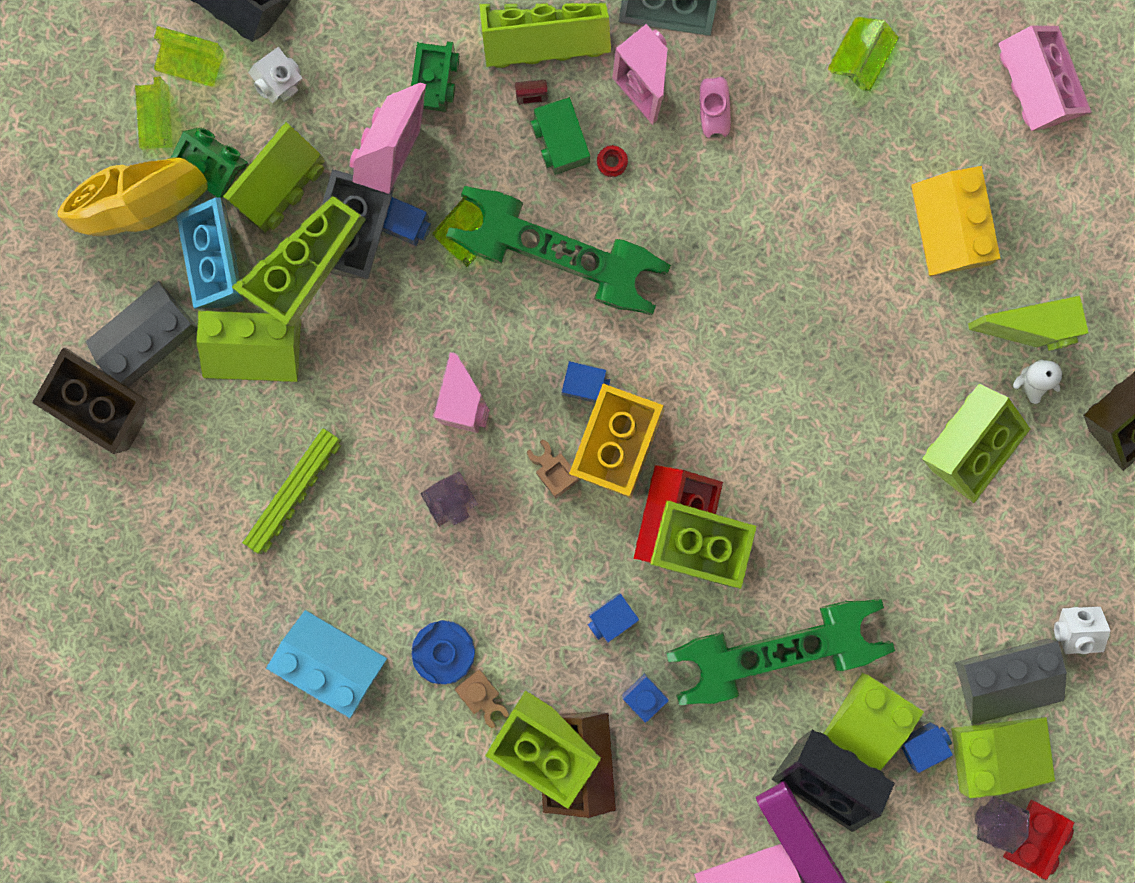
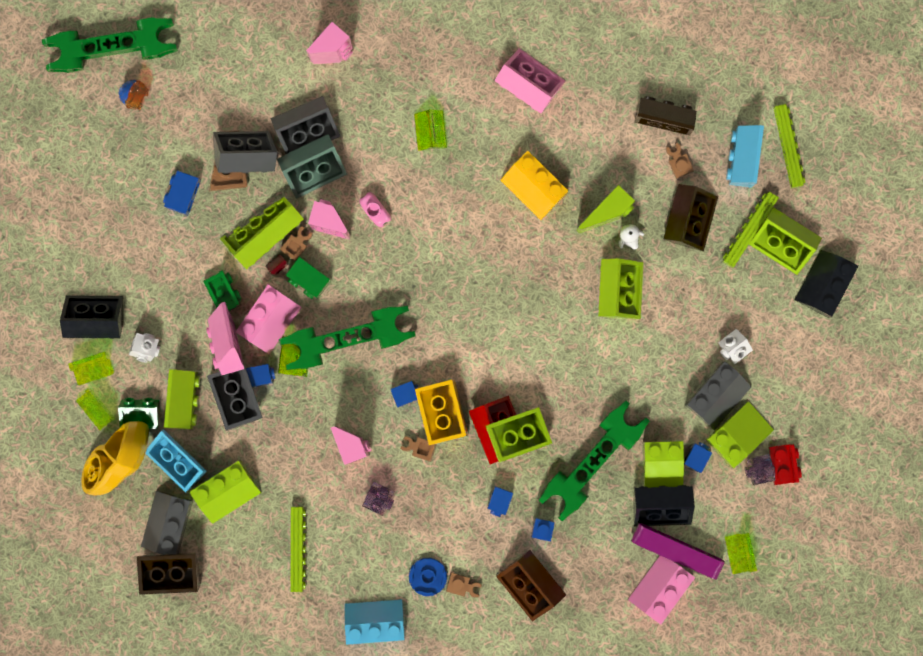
camera: 25 degrees left, 0 degrees up
(299, 266) = (225, 438): lime wedge -> none
(469, 153) = (268, 319): none -> bright pink slope
(543, 750) = (510, 589): lime slope -> none
(574, 82) = (294, 245): none -> medium nougat plate
(612, 151) = (337, 268): red plate -> none

